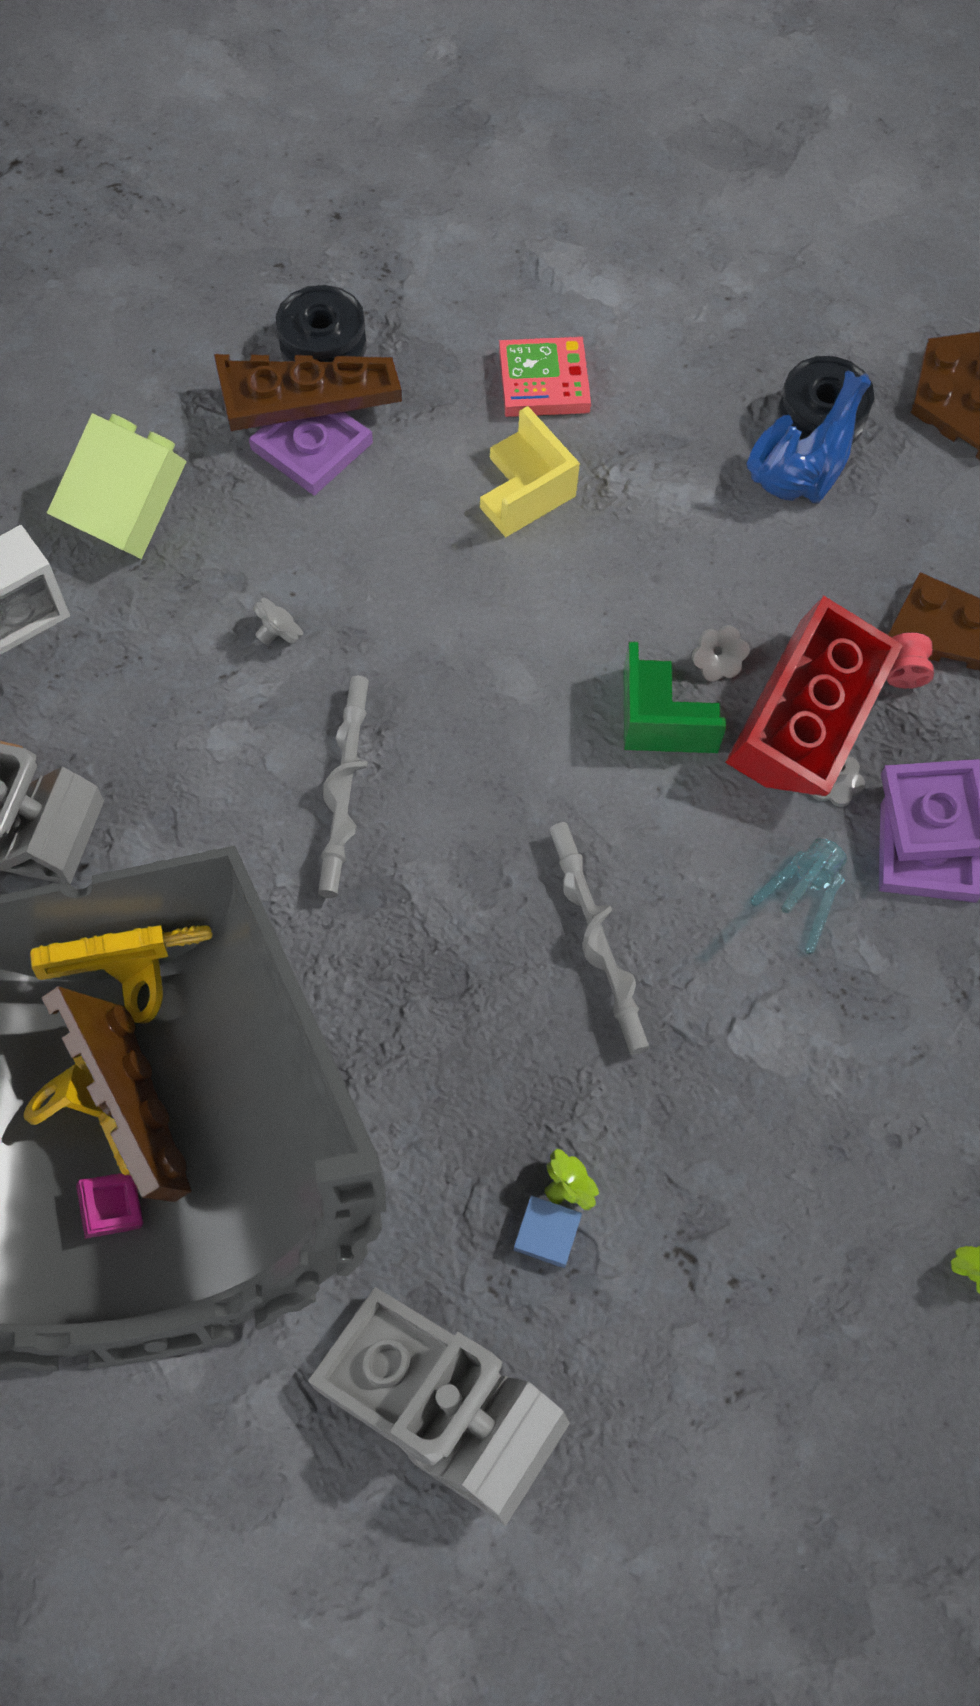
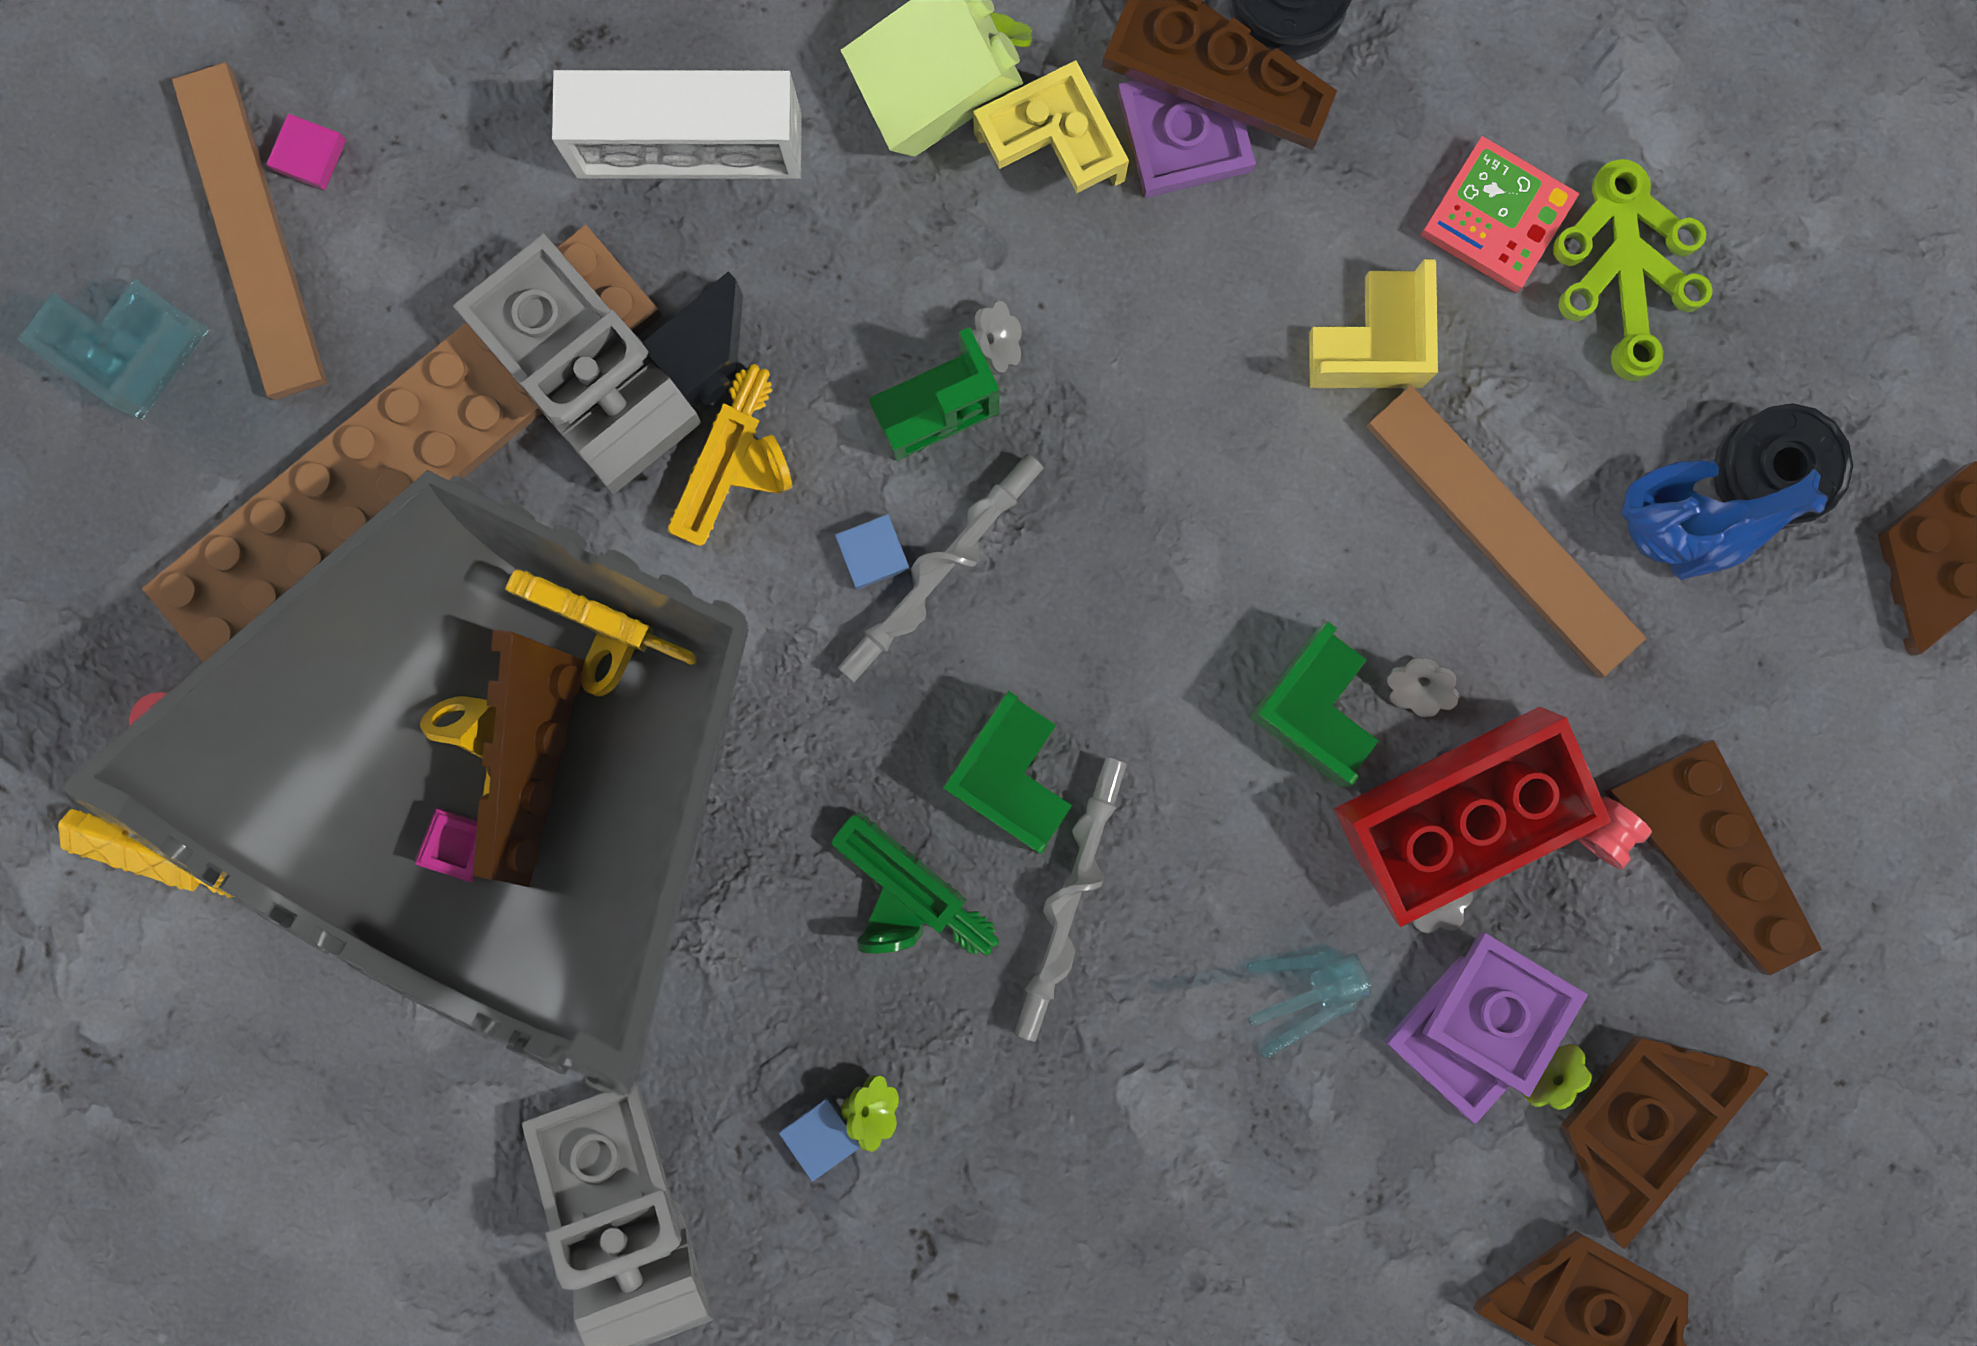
camera: 40 degrees right, 20 degrees up
(69, 740) = (701, 343): none -> black slope
(146, 806) = (731, 459): none -> yellow piece
(224, 464) = (1055, 112): none -> light yellow panel
(272, 677) = (938, 401): none -> green panel
(288, 806) = (872, 552): none -> medium blue tile
(482, 1008) = (909, 894): none -> green piece
(488, 898) = (994, 776): none -> green panel
(608, 324) = (1630, 259): none -> lime plant
(694, 539) = (1506, 532): none -> medium nougat tile

